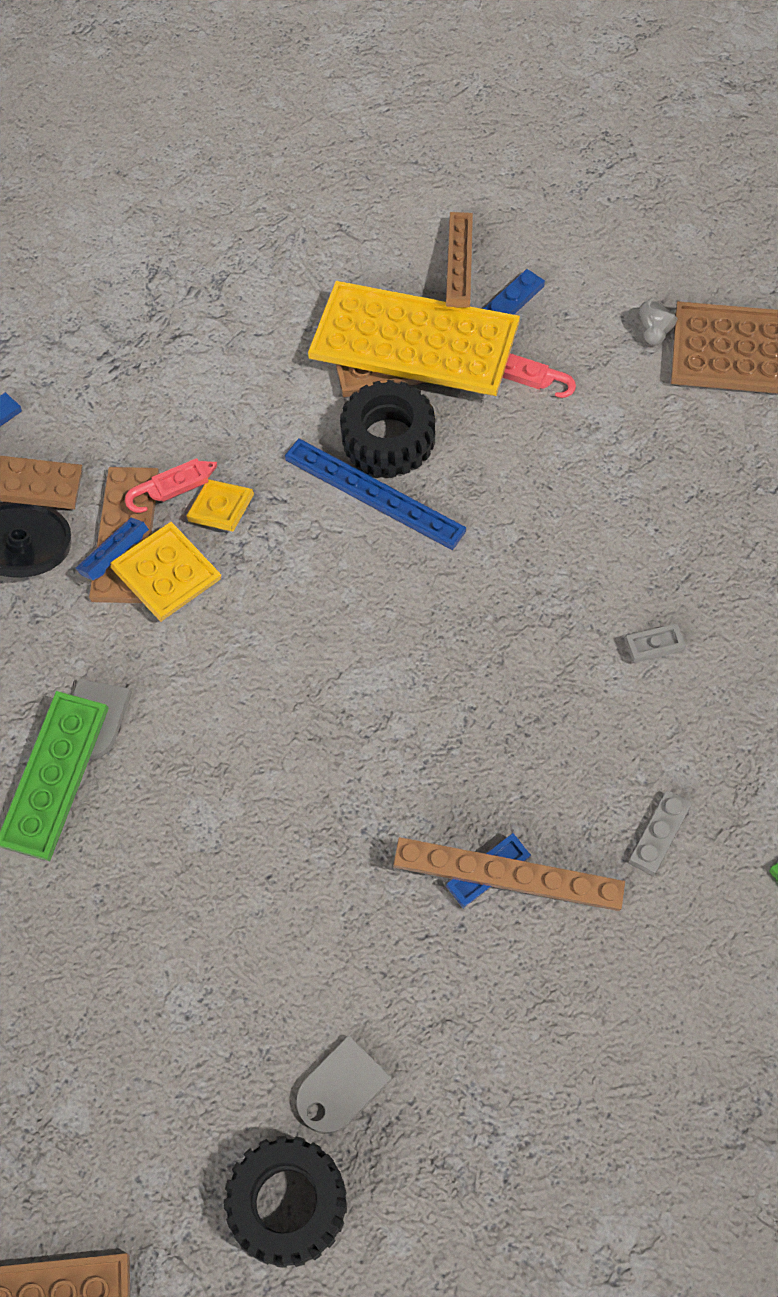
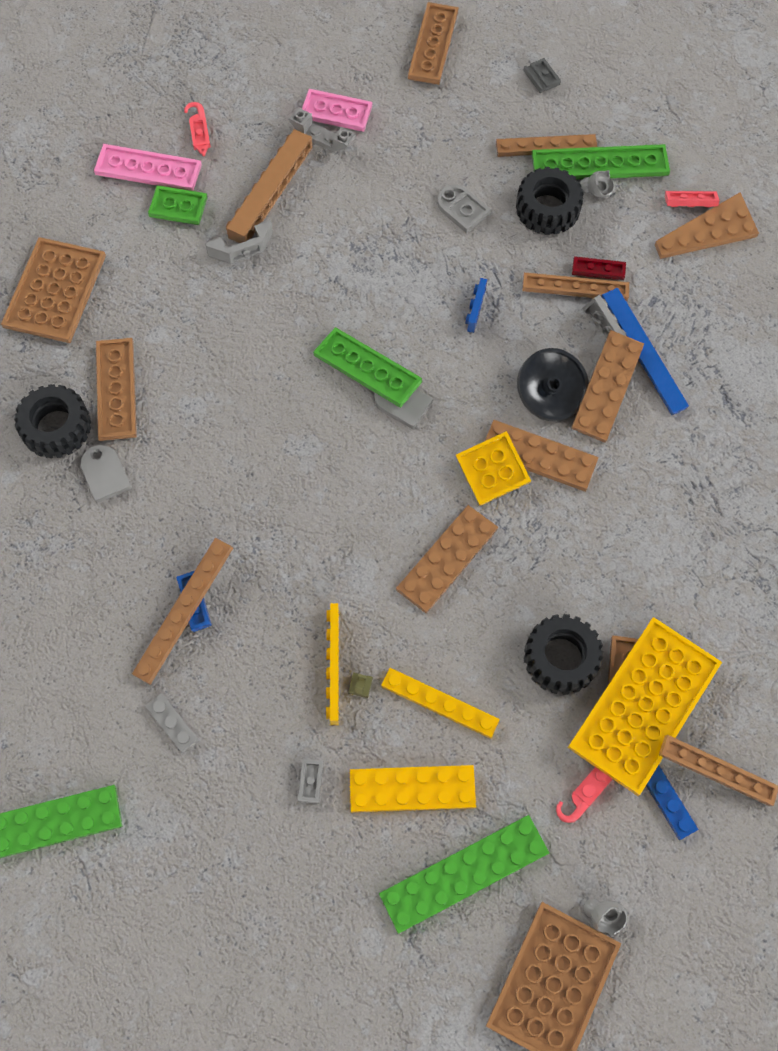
camera: 105 degrees right, 5 degrees up
(116, 545) = (520, 437): blue plate -> none
(172, 483) = (566, 491): coral plate -> none
(191, 1134) = (116, 389): none -> medium nougat plate
(220, 505) = (539, 521): yellow plate -> none
(307, 592) = (446, 559): none -> medium nougat plate
(376, 494) = (513, 632): blue tile -> none
(494, 669) = (332, 672): none -> yellow plate
(496, 544) = (440, 703): none -> yellow plate
(512, 633) = (360, 685): none -> olive tile
(611, 540) = (412, 788): none -> yellow plate
(679, 461) = (463, 874): none -> bright green plate

